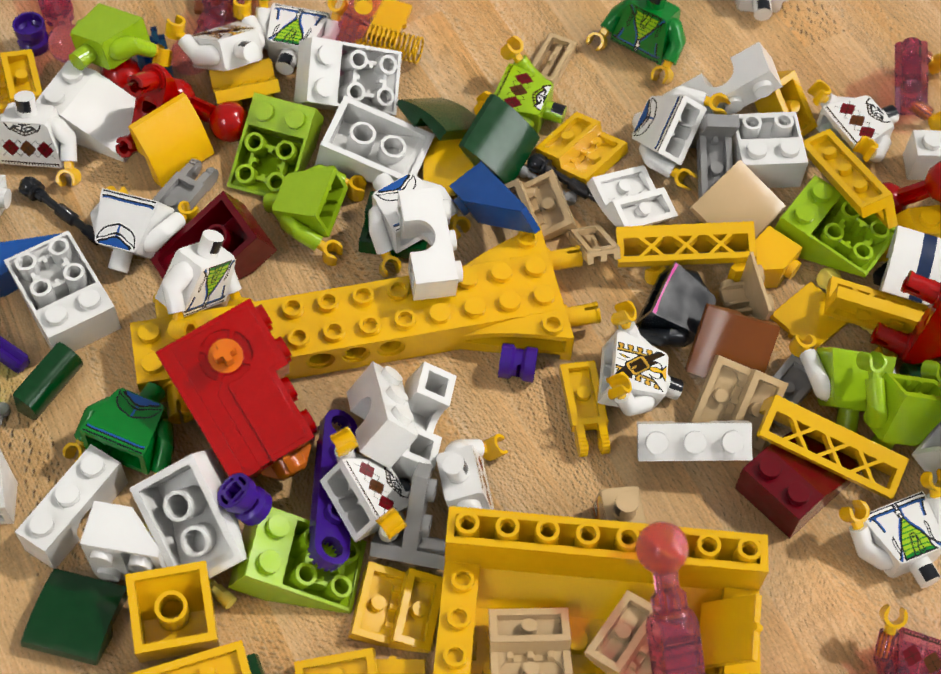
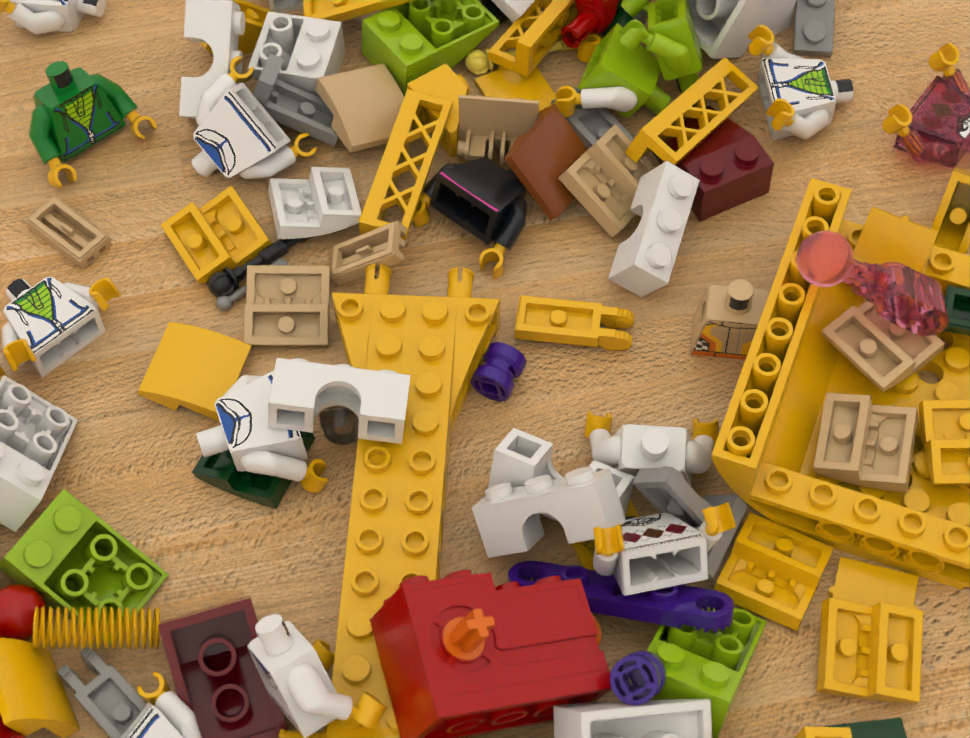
camera: 70 degrees left, 0 degrees up
(207, 137) = (104, 629): none -> yellow piece
(310, 204) = (198, 540): lime torso -> none
(372, 143) = (131, 449): white slope -> none
(444, 117) = (108, 362): dark green slope -> none
(459, 68) = (52, 321): none -> torso
(491, 201) = (284, 327): blue slope -> none
(499, 139) = (189, 304): dark green slope -> none
(525, 89) = (130, 262): torso -> none
(632, 369) = (548, 260): torso -> none

